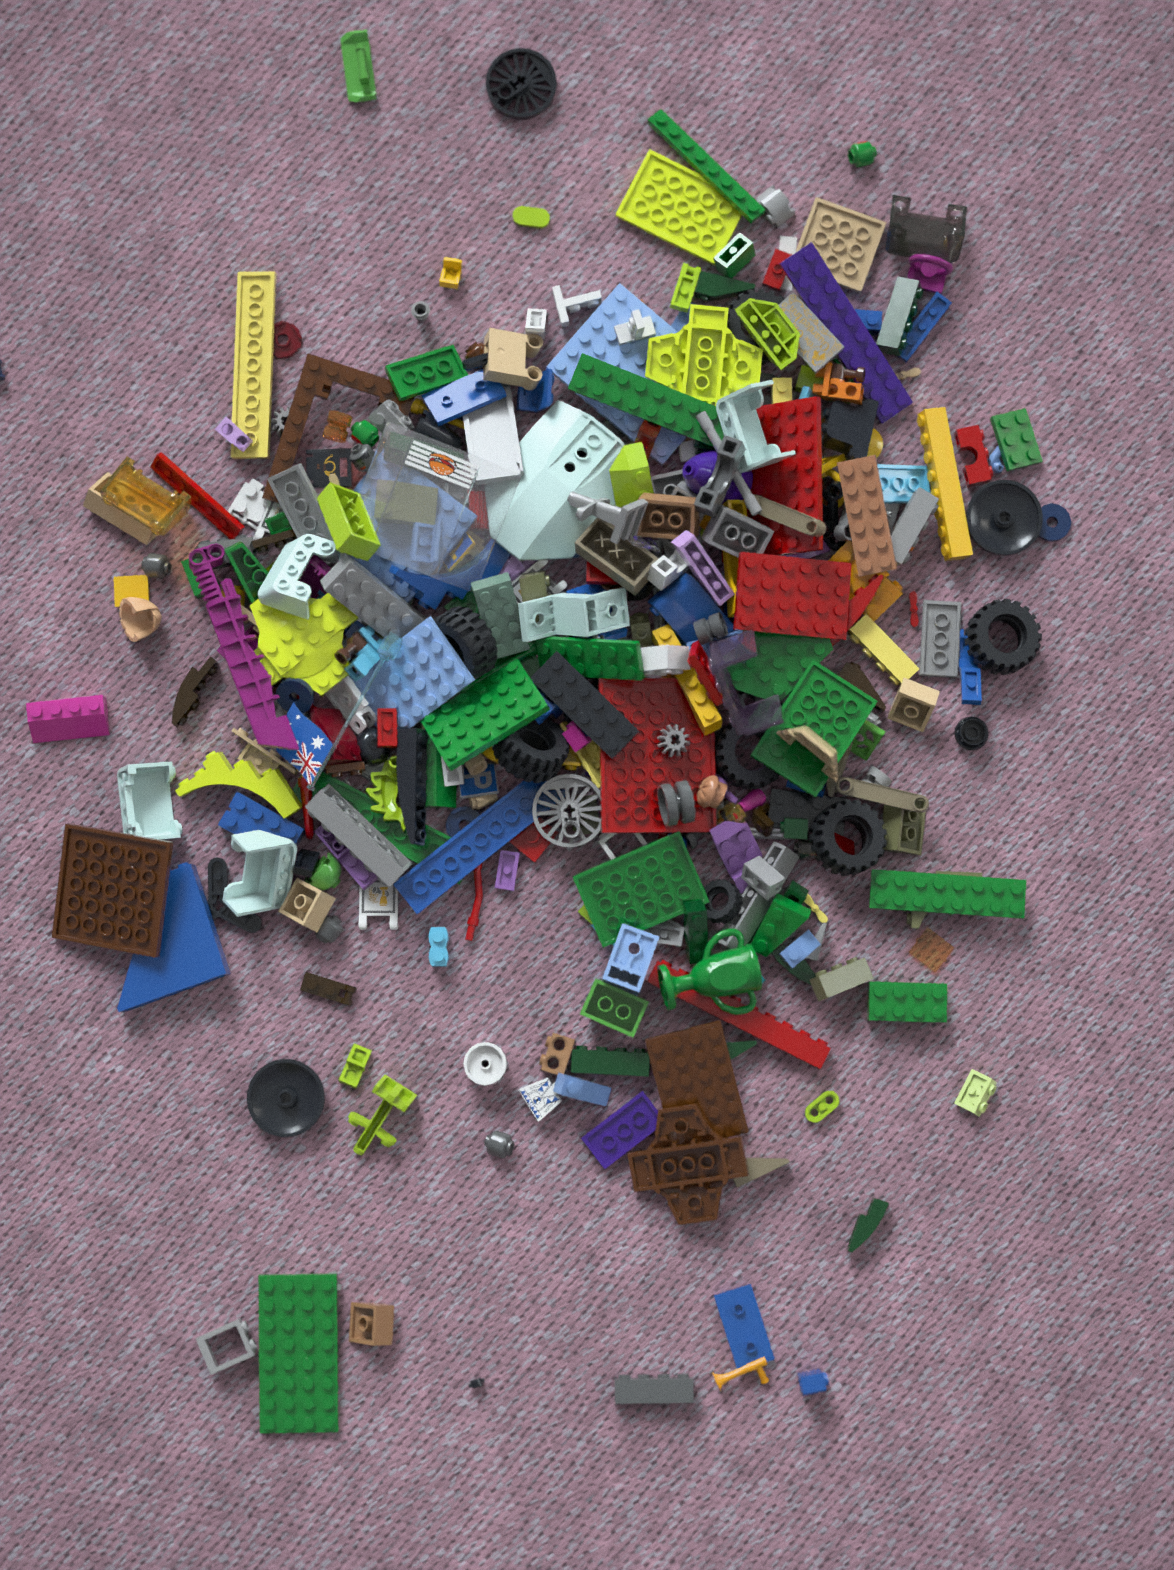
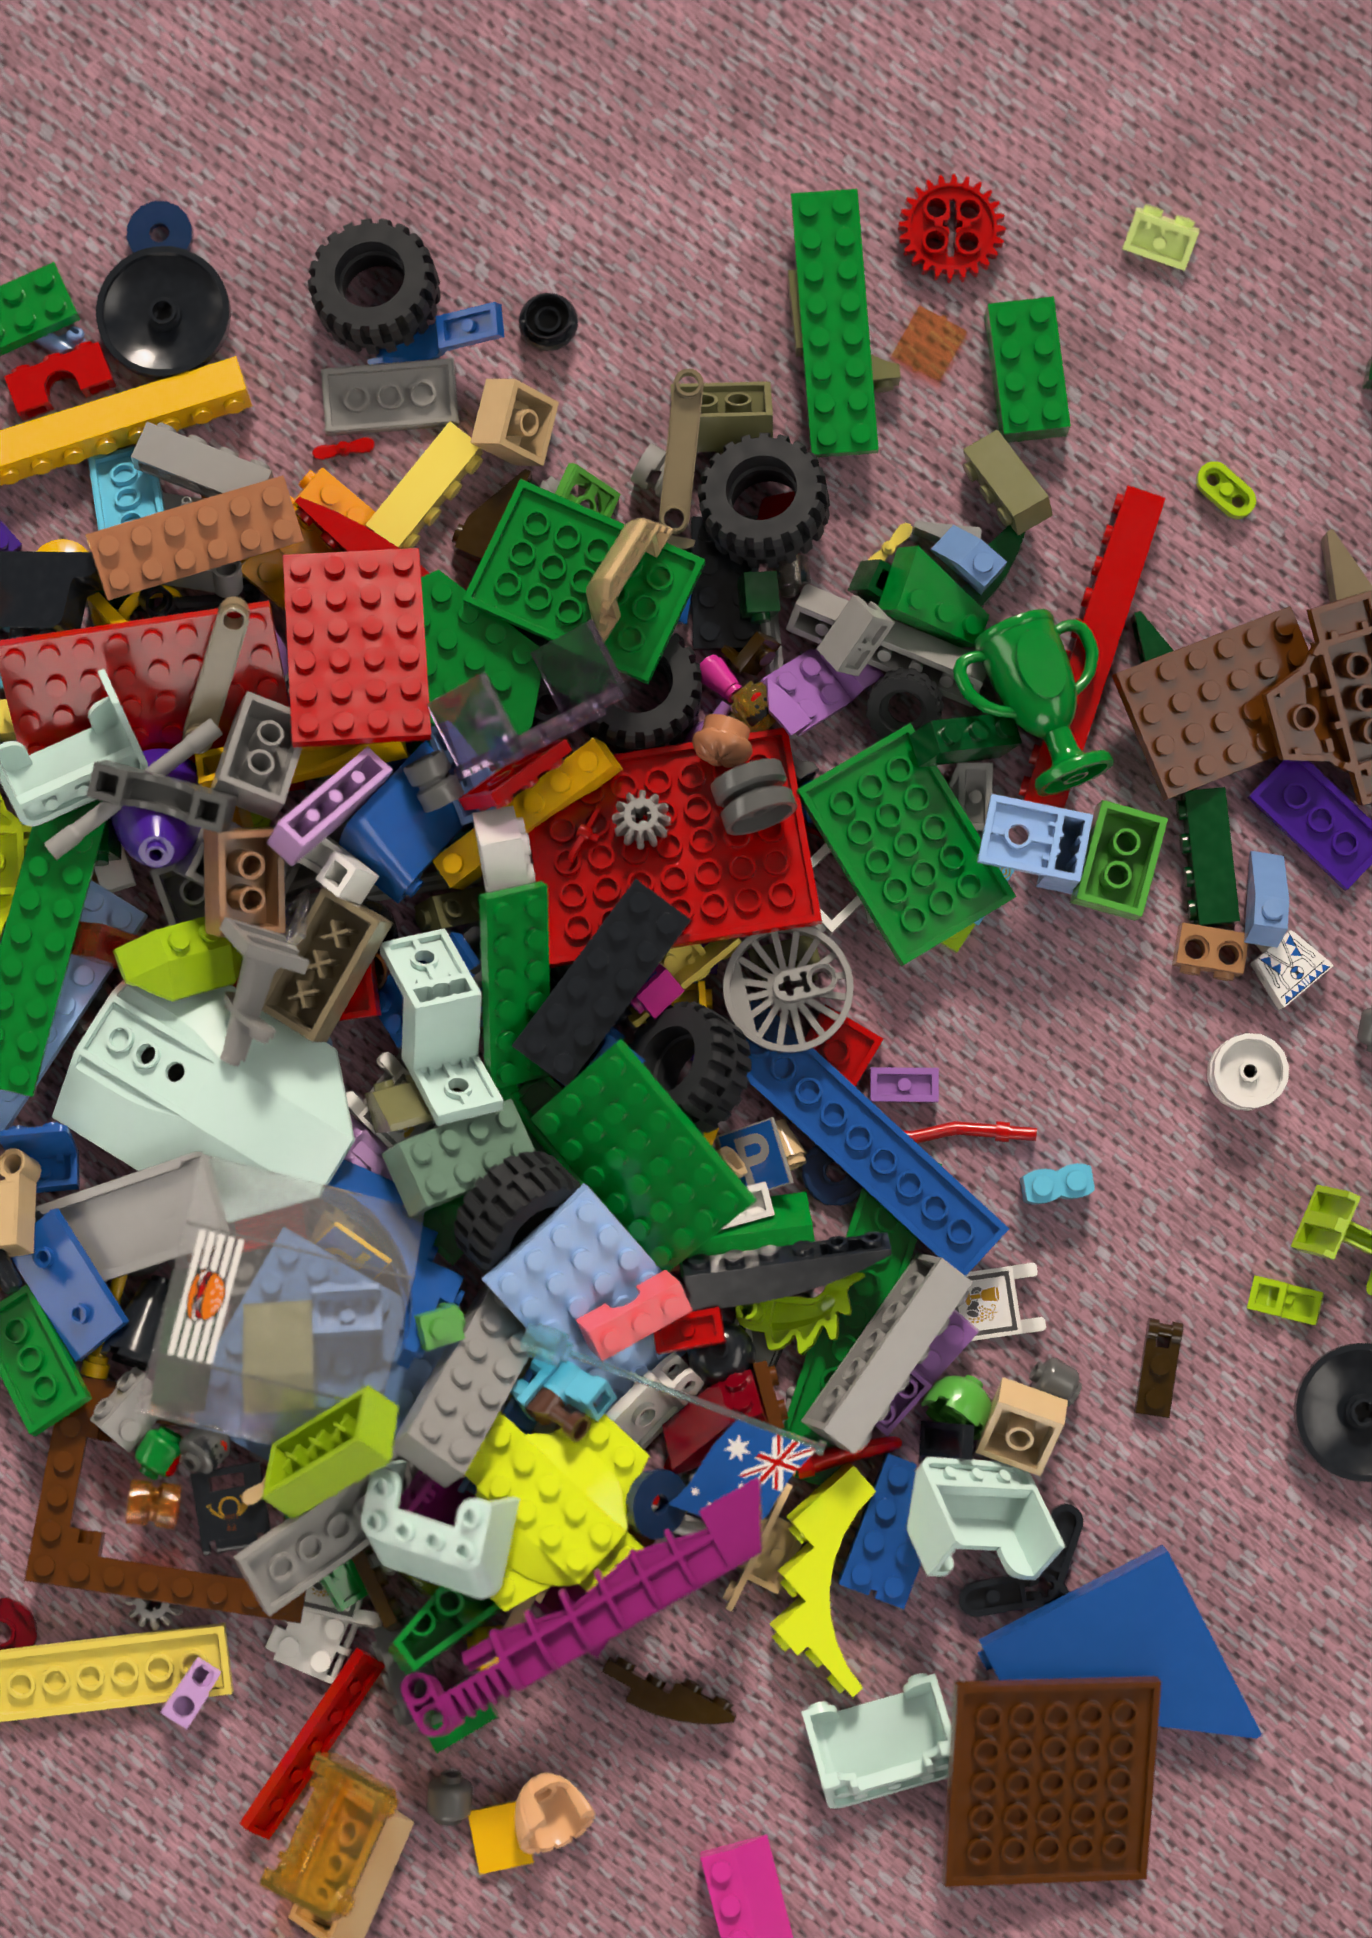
camera: 100 degrees left, 0 degrees up
(393, 688) = (614, 1329): none -> coral arch
(408, 590) = (440, 1326): none -> bright green bracket
(670, 708) = (585, 833): none -> red piece
(994, 989) = (981, 230): none -> red gear

